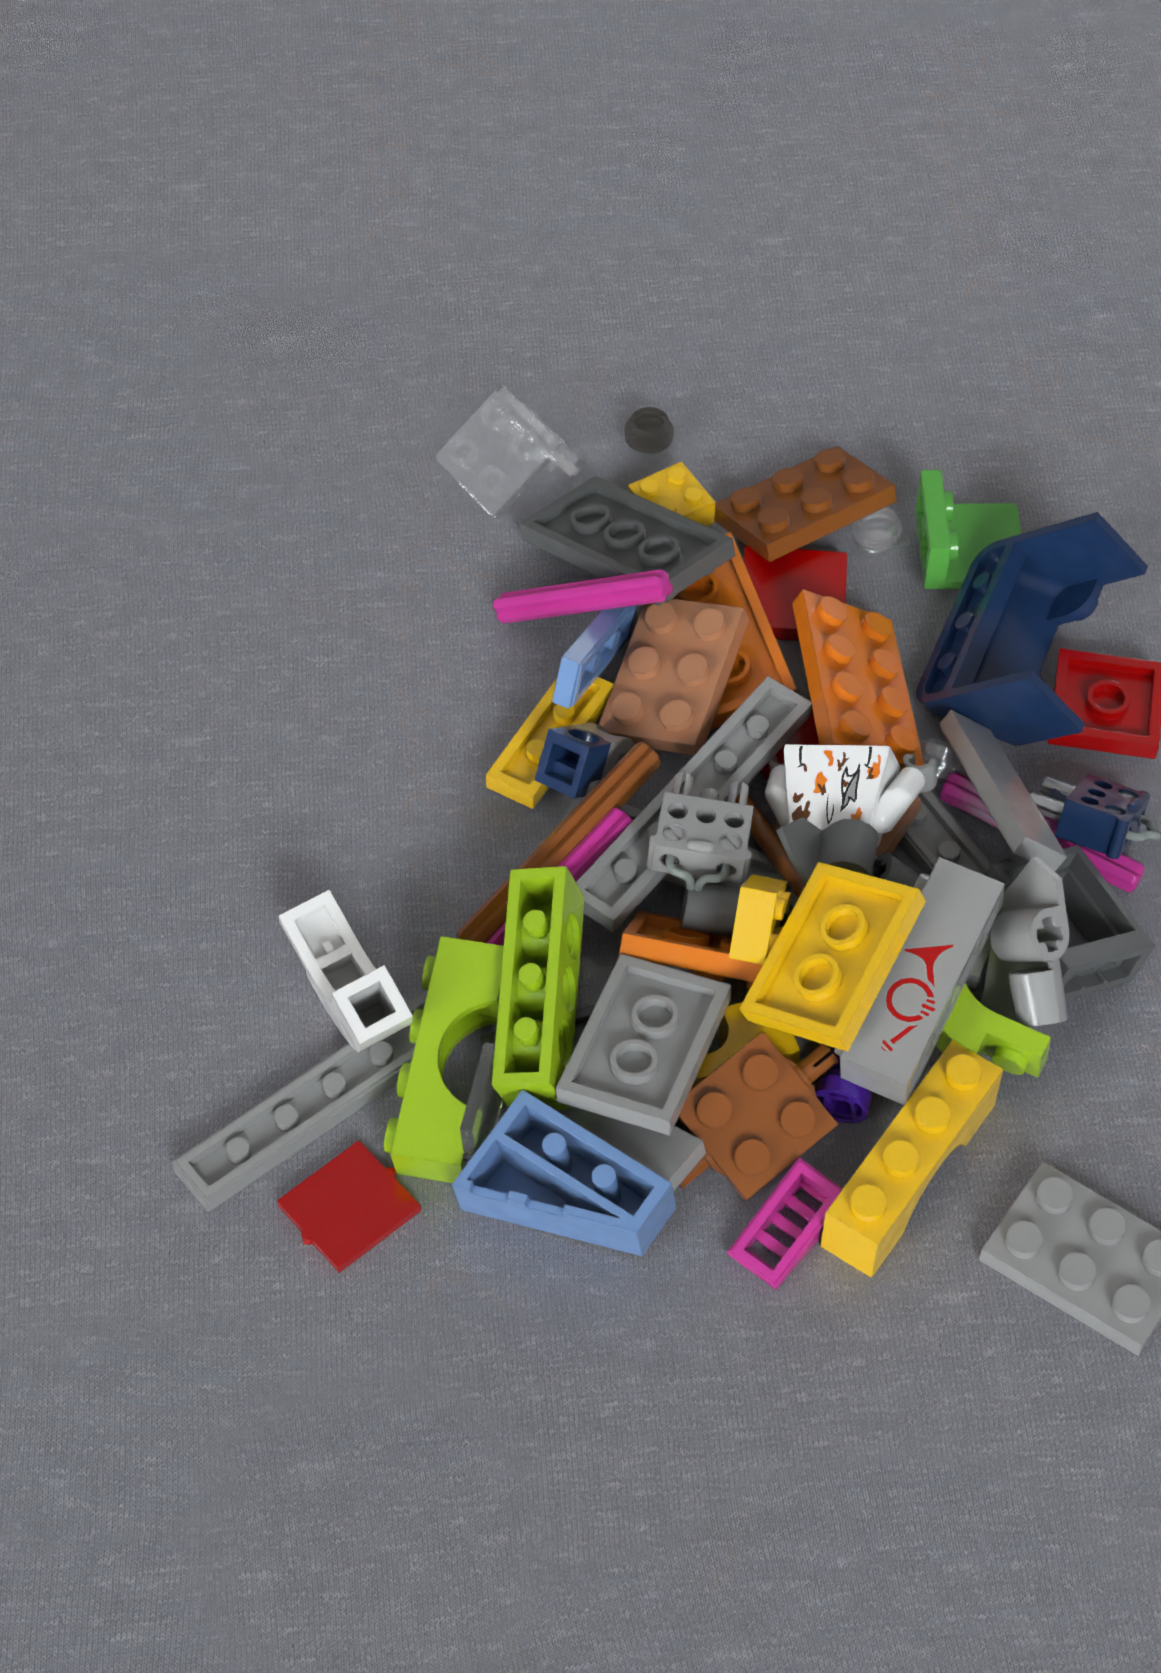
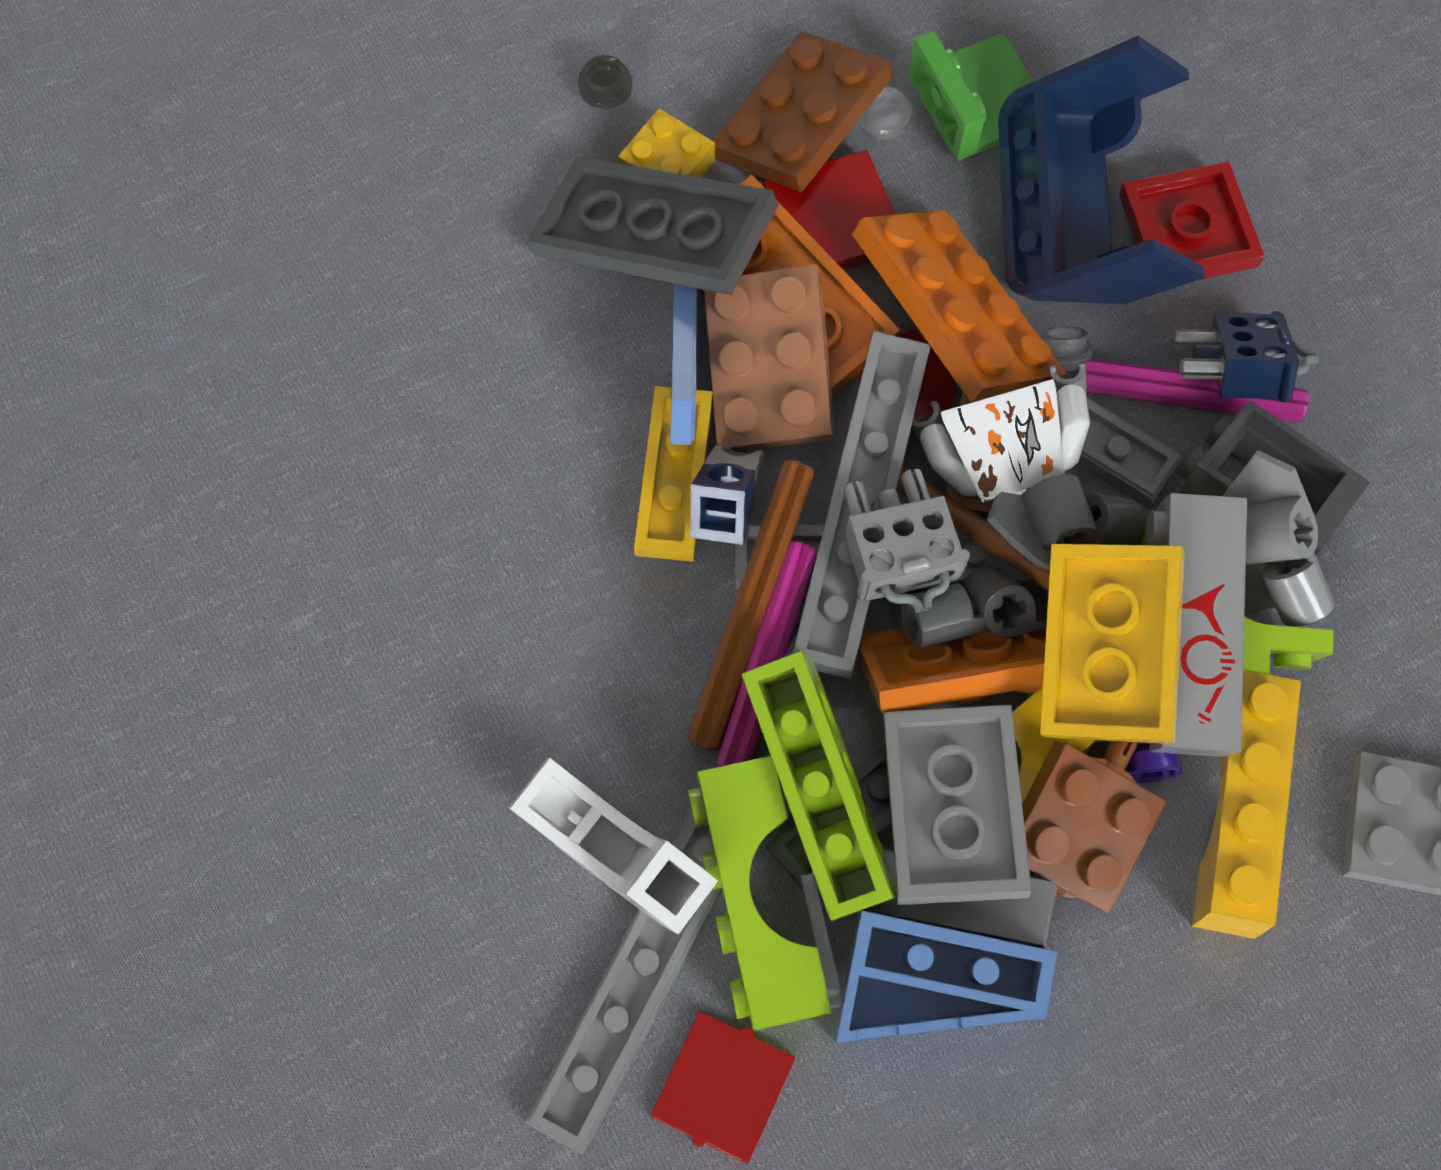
camera: 25 degrees left, 15 degrees up
(504, 452) = (471, 162): clear bracket -> none
(583, 596) = (646, 310): dark pink axle -> none
(758, 918) = (1012, 624): yellow piece -> none
(798, 1177) = (1187, 905): dark pink slope -> none
(1002, 790) = (1159, 373): light grey tile -> none

